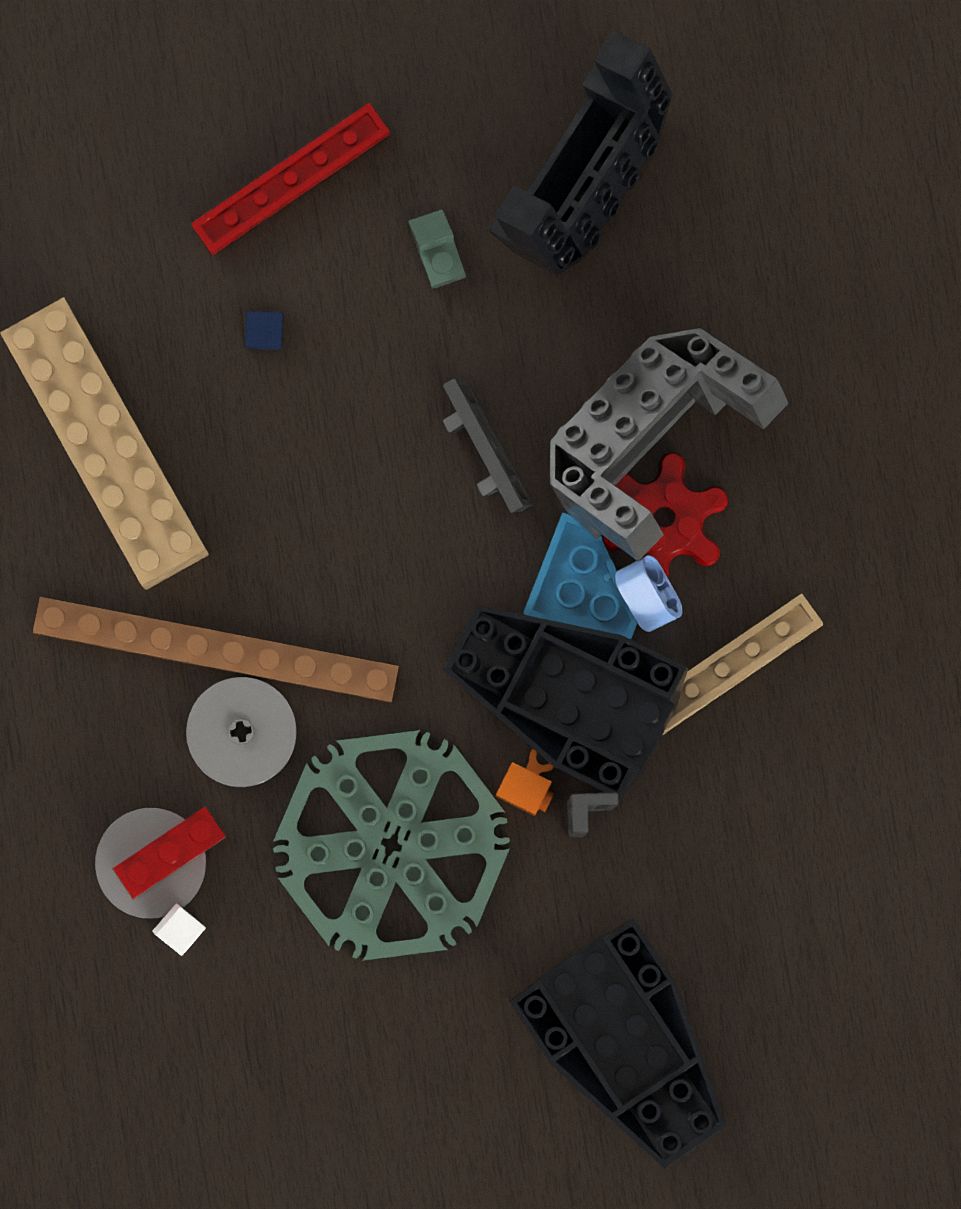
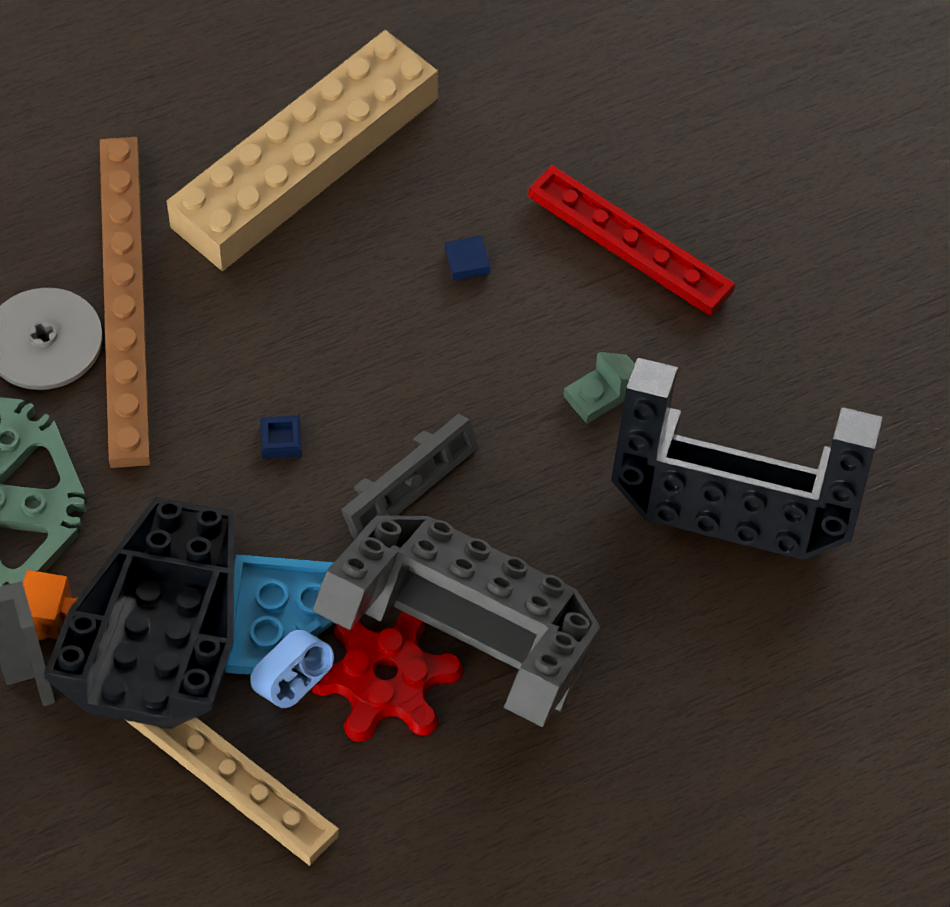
camera: 75 degrees right, 25 degrees down
(406, 546) = (281, 437): none -> dark blue tile

